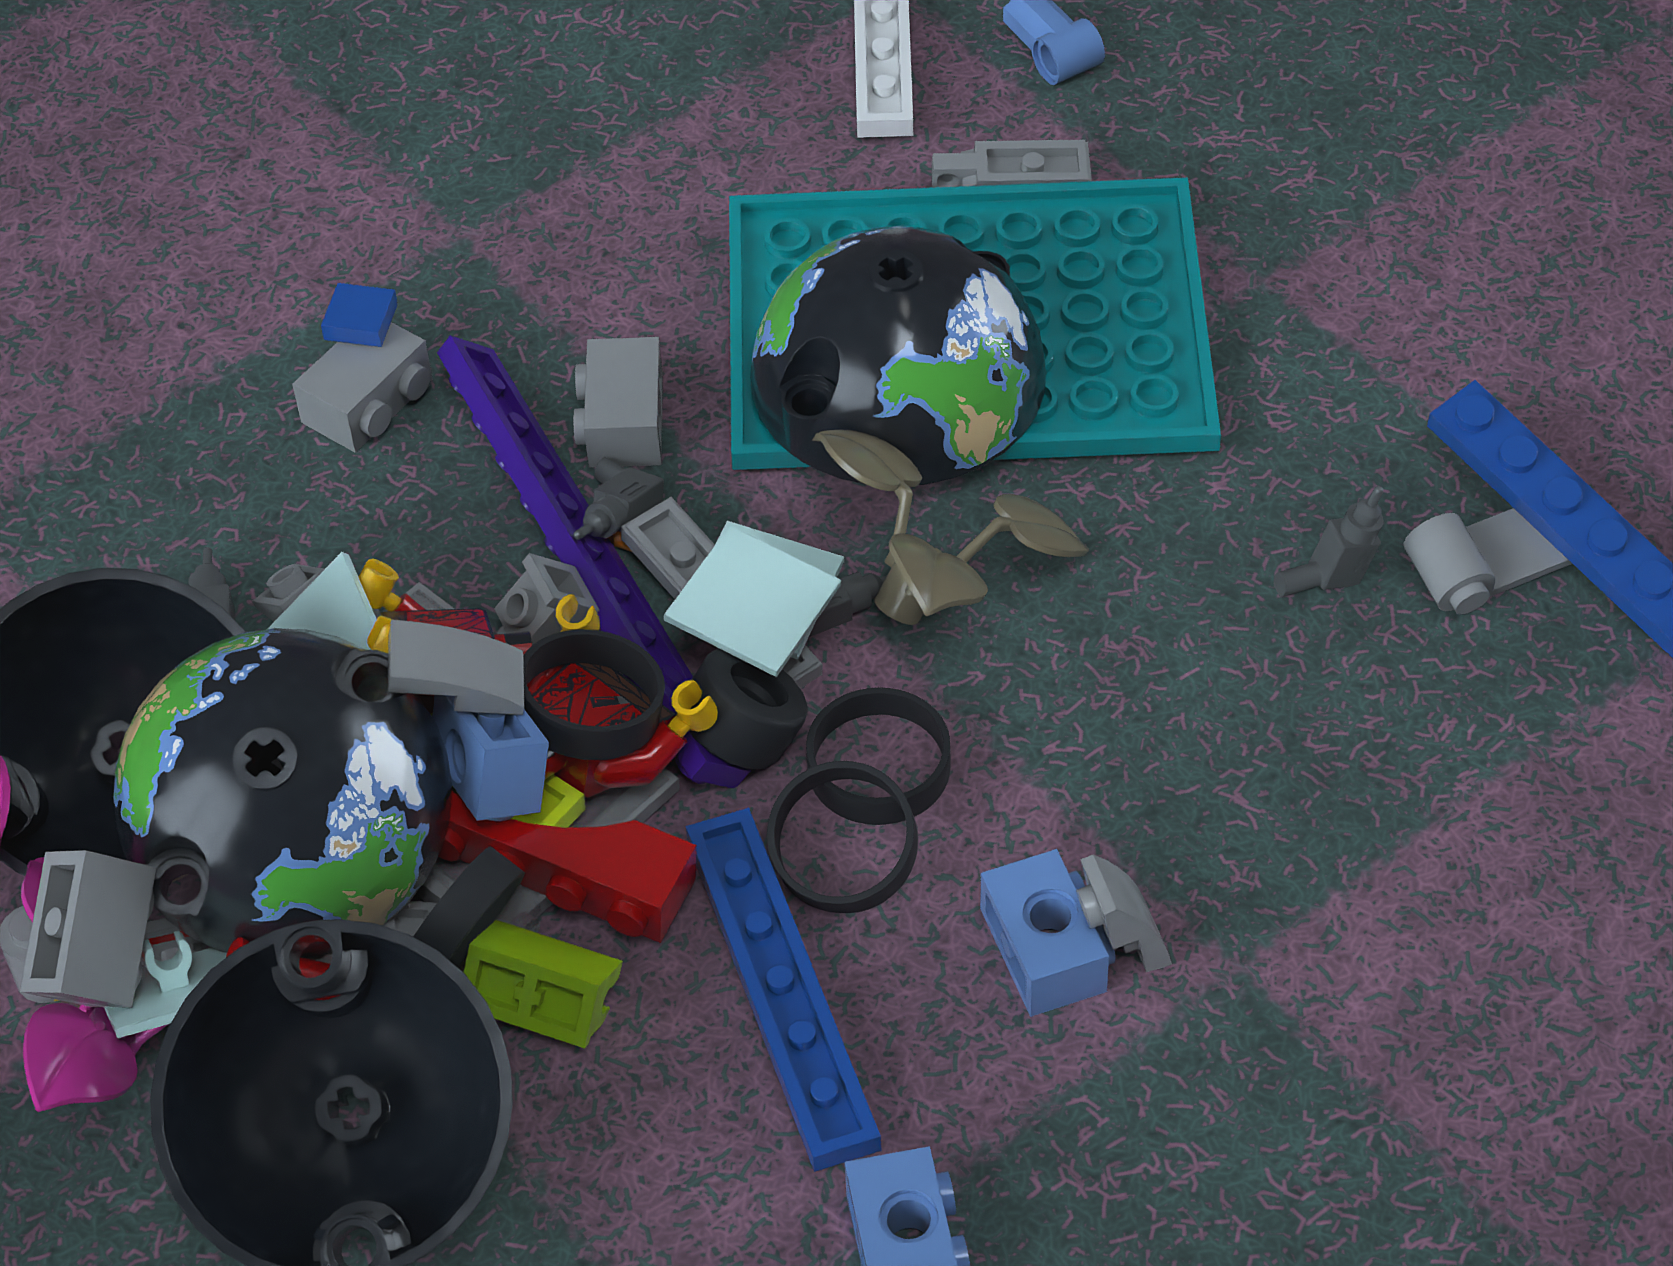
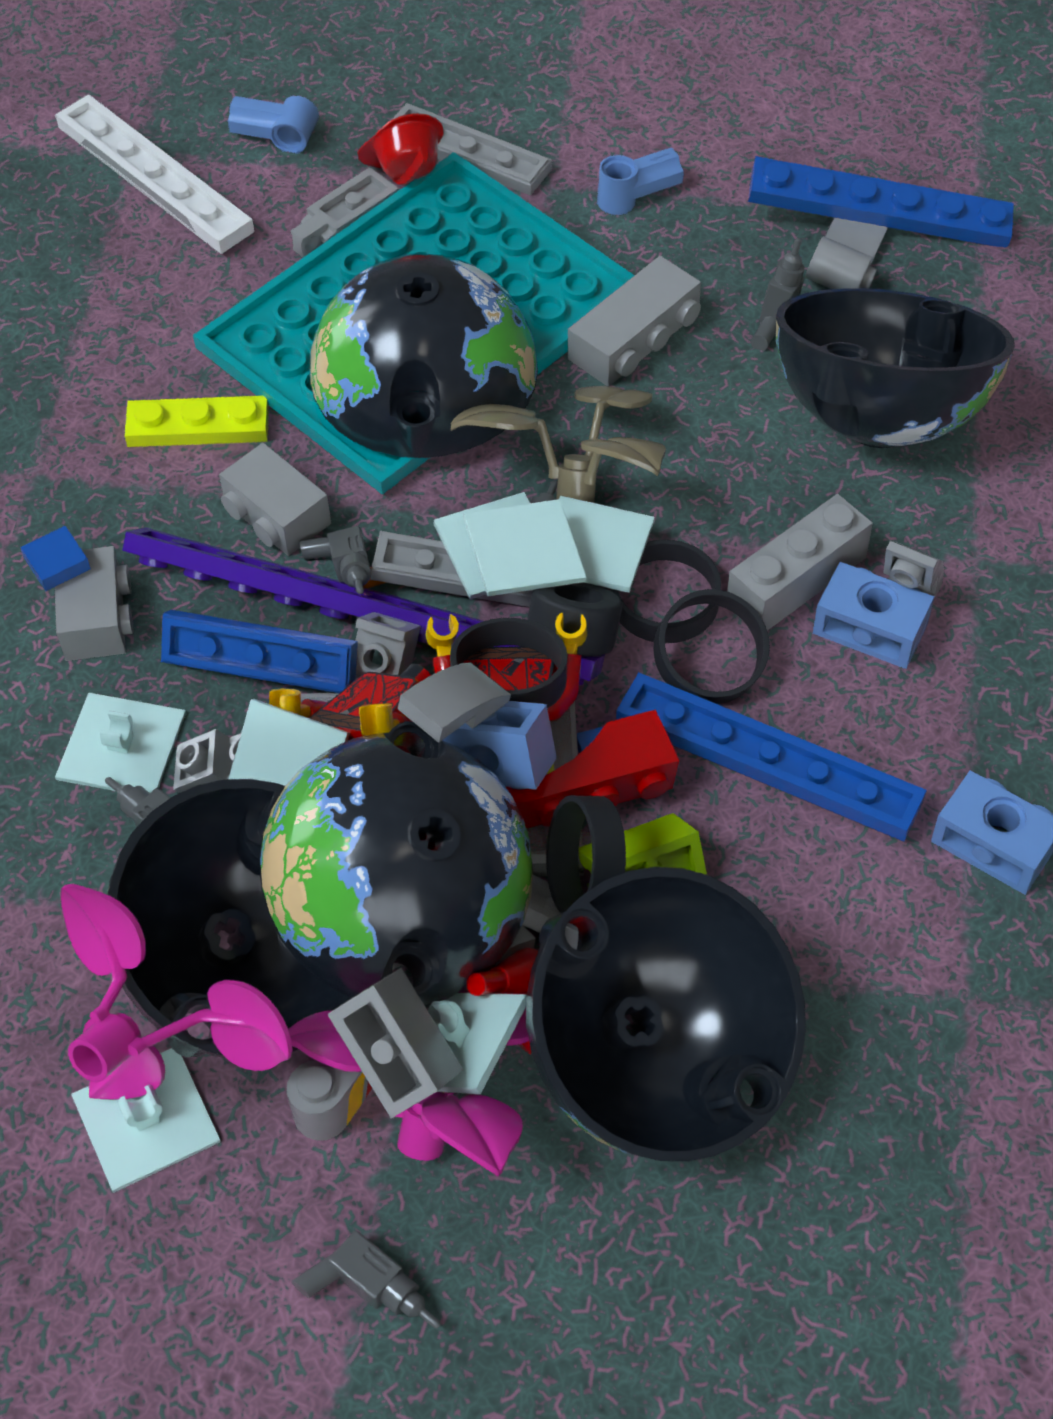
camera: 45 degrees left, 5 degrees up
(259, 529) = (121, 742): none -> light aqua piece
(441, 526) = (258, 651): none -> blue tile
(651, 283) = (196, 421): none -> neon yellow plate
(857, 657) = (608, 541): none -> light aqua piece
(1002, 819) = (801, 560): none -> light grey brick
(1124, 139) = (404, 147): none -> red piece
(1166, 469) = (634, 321): none -> light grey brick
(1221, 188) = (497, 158): none -> light grey tile
(1321, 666) = (860, 368): none -> black piece
(1329, 323) = (627, 179): none -> medium blue piece

